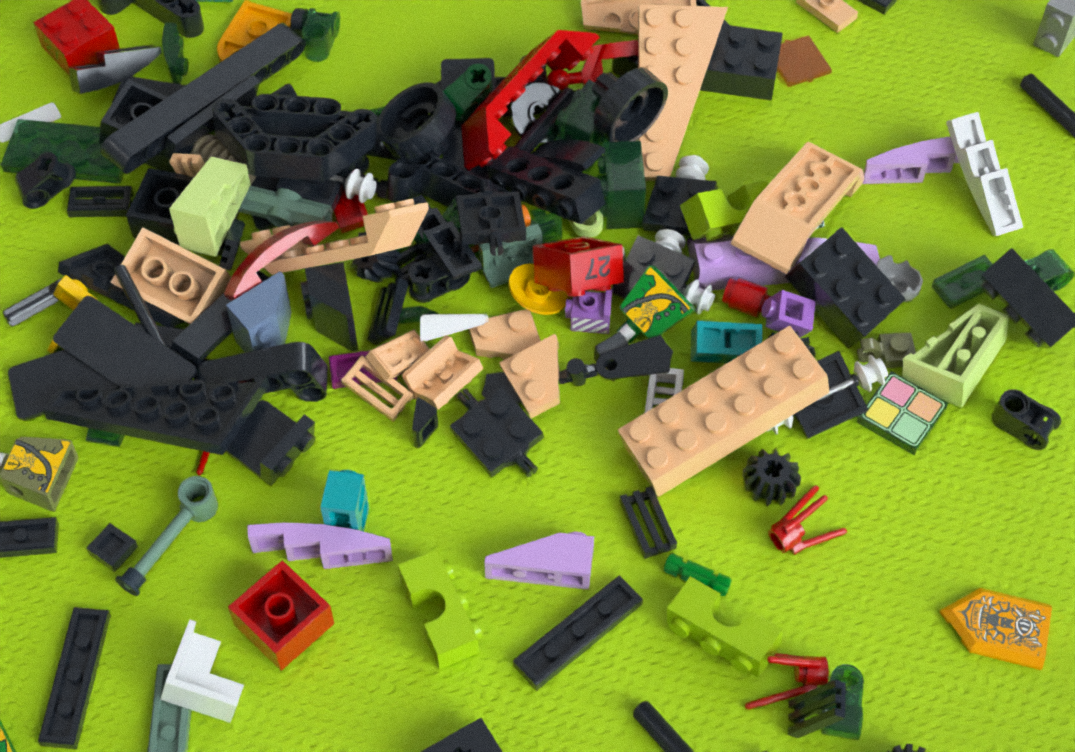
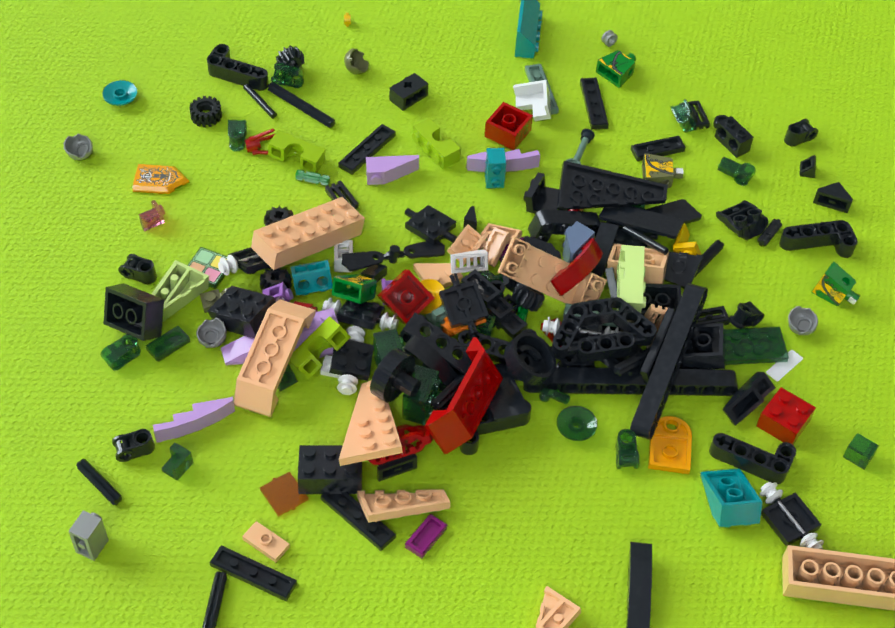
camera: 165 degrees right, 5 degrees down
(112, 547) = (603, 148): black plate -> none
(173, 53) = (715, 414): clear green slope -> none
(298, 20) = (643, 455): black tile -> none
(373, 73) = (579, 417): none -> clear green dish
(467, 95) = (504, 391): dark green piece -> none
(535, 375) = (417, 248): light nougat wing -> none
(788, 531) = (267, 198): plant -> none
(817, 702) = (248, 120): tile -> none
(942, 109) = (179, 462): none -> clear green panel
(982, 171) = (154, 405): white slope -> none
(1007, 522) = (152, 217): none -> bracket
(1012, 136) = (133, 445): none -> black piece

